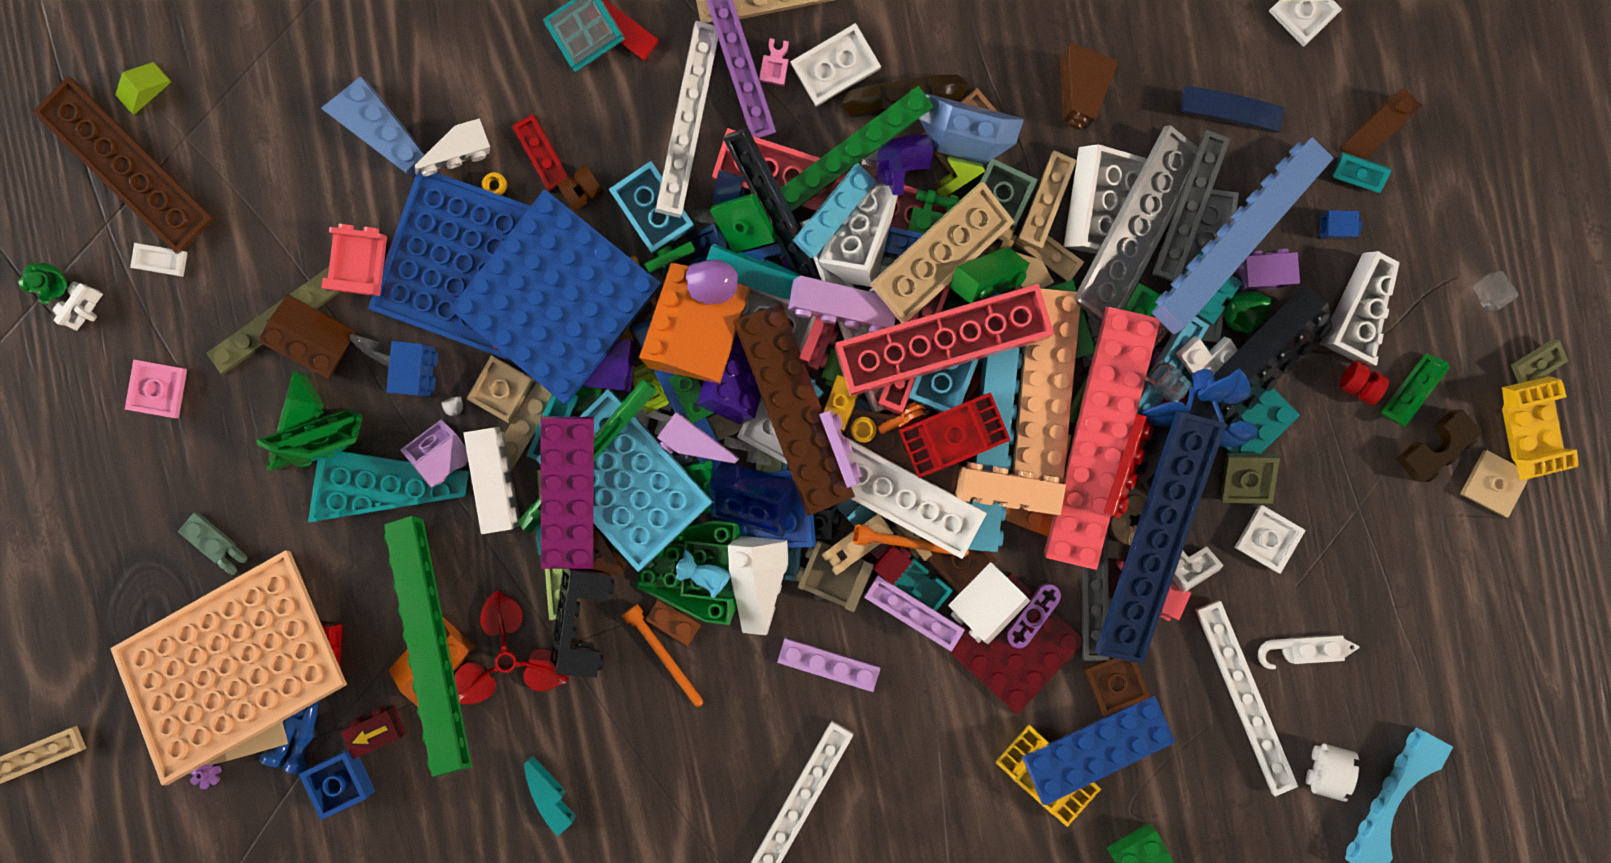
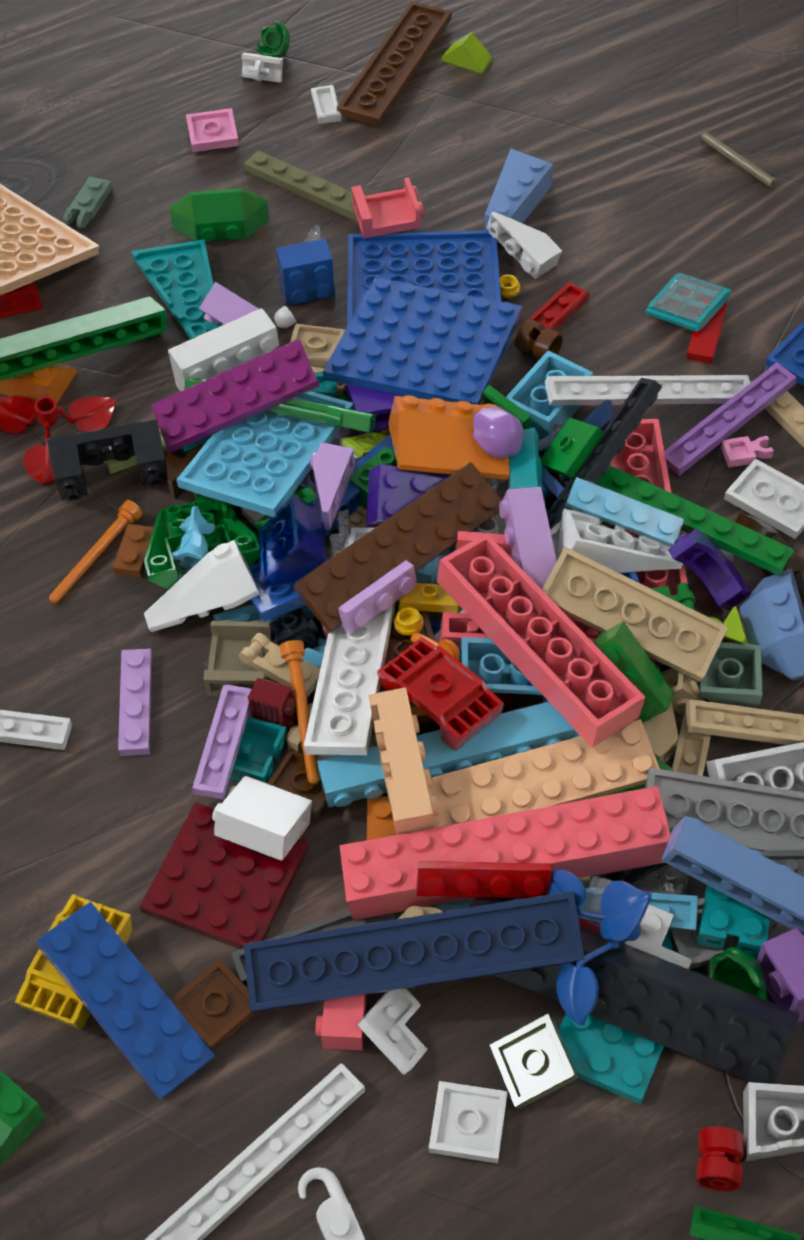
camera: 70 degrees right, 35 degrees down
(307, 336) = (302, 199): reddish brown slope -> none
(314, 438) = (208, 220): green wedge -> none
(1015, 626) = (290, 869): medium lavender beam -> none

